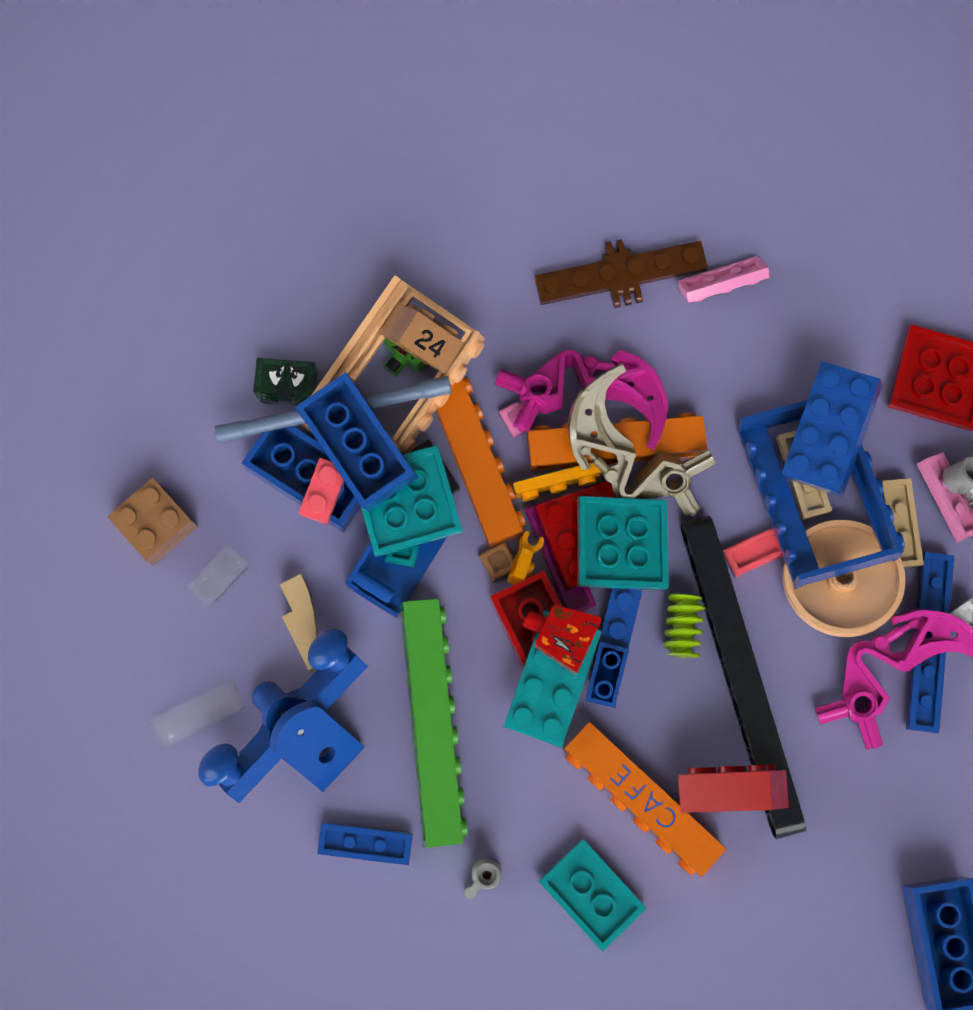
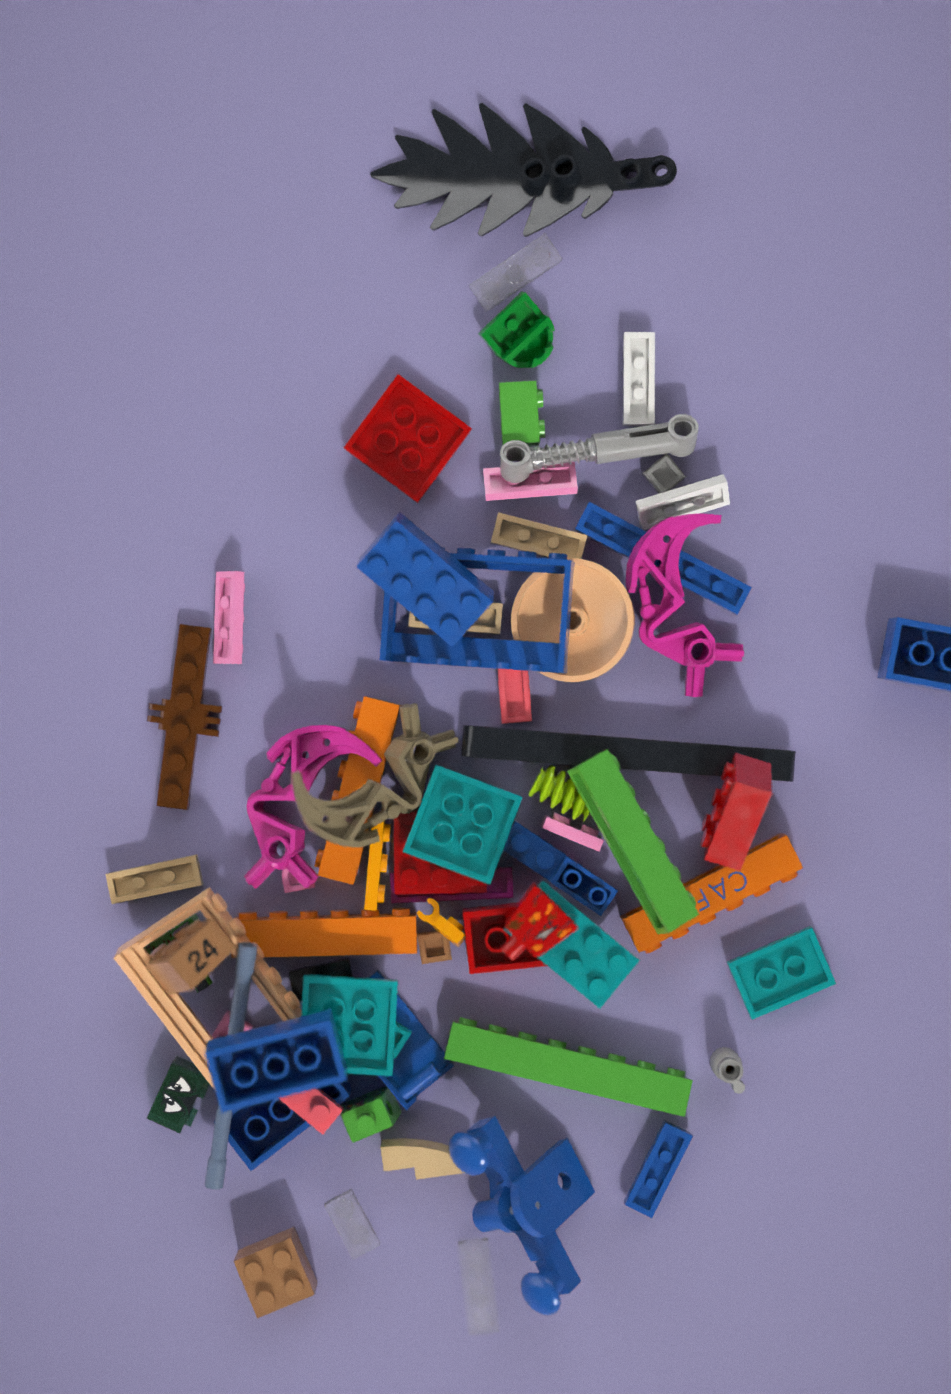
camera: 65 degrees left, 10 degrees up
(328, 554) = (369, 1113): none -> bright green torso
(470, 295) = (154, 879): none -> tan plate
(651, 637) = (561, 825): none -> bright pink plate
(668, 703) = (633, 842): none -> bright green brick

